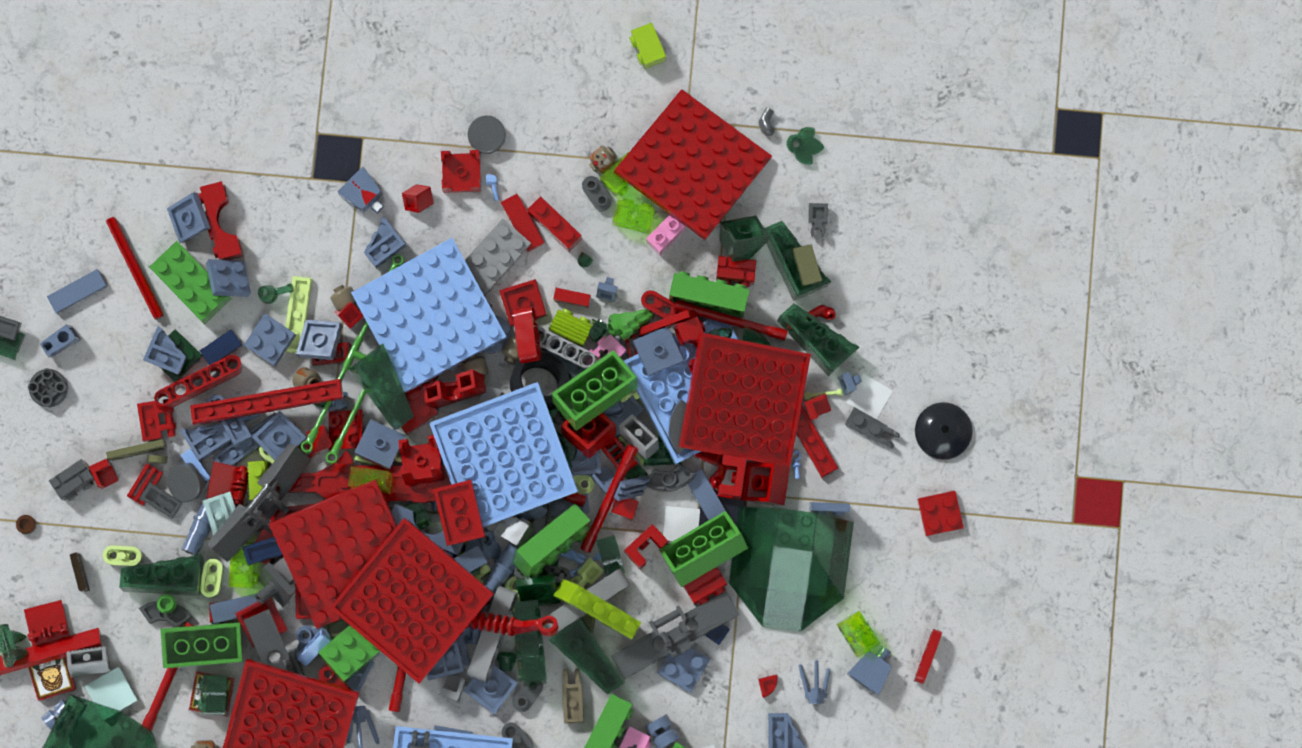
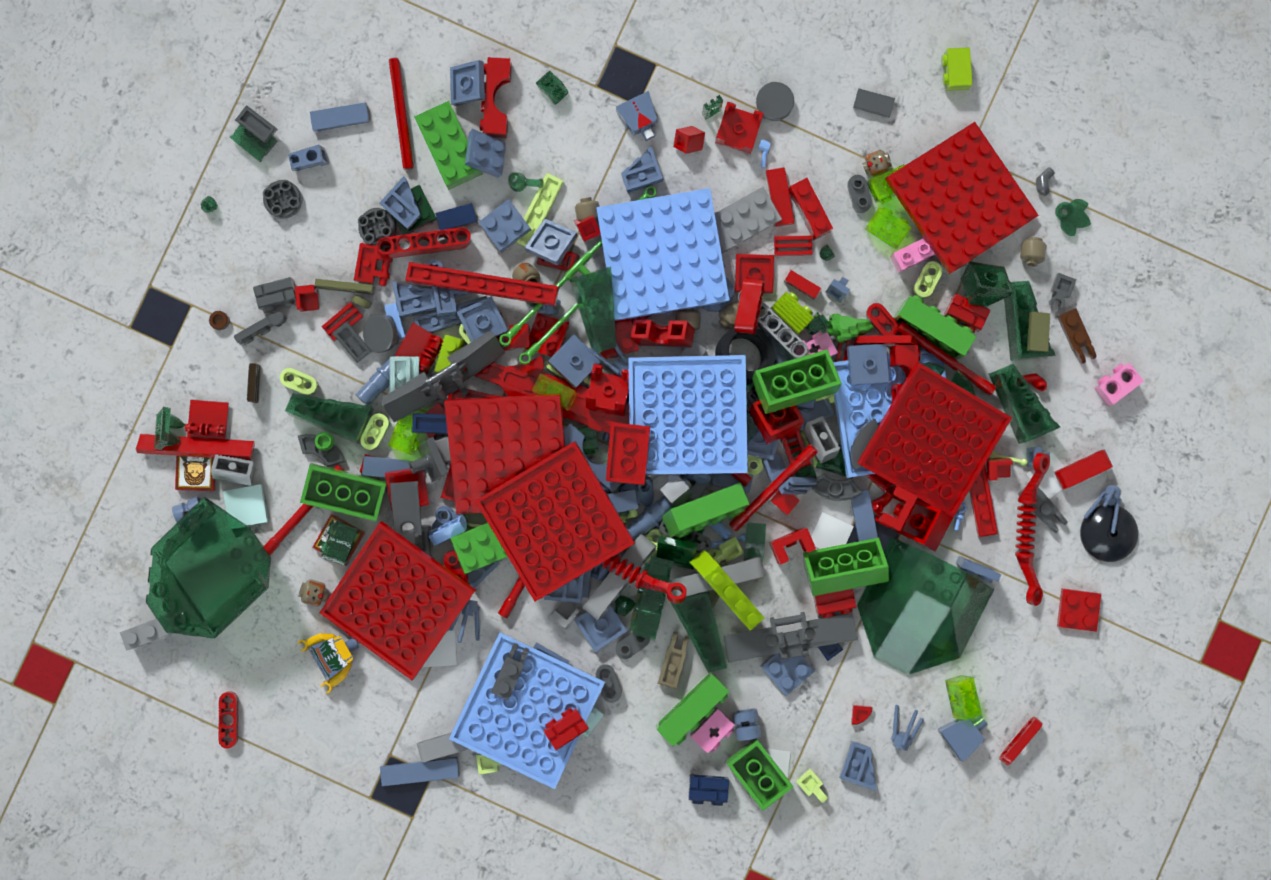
camera: 20 degrees right, 5 degrees up
(68, 517) = (261, 327): none -> dark grey hinge
(147, 381) = (376, 224): none -> dark grey tile
(271, 193) = (552, 87): none -> clear green bracket
(421, 435) = (617, 366): none -> sand blue plant
(424, 164) = (709, 111): none -> clear green tile
(547, 257) = (809, 245): none -> red tile
(580, 104) = (874, 103): none -> dark grey tile
(687, 252) = (927, 280): none -> yellowish green plate
(778, 191) = (1033, 251): none -> dark tan head
(847, 254) = (1076, 334): none -> reddish brown hinge
(870, 480) = (1025, 558): none -> red piece
(897, 379) = (1083, 469): none -> red beam
(905, 290) = (1120, 387): none -> bright pink brick
(931, 396) = (1110, 497): none -> sand blue plant

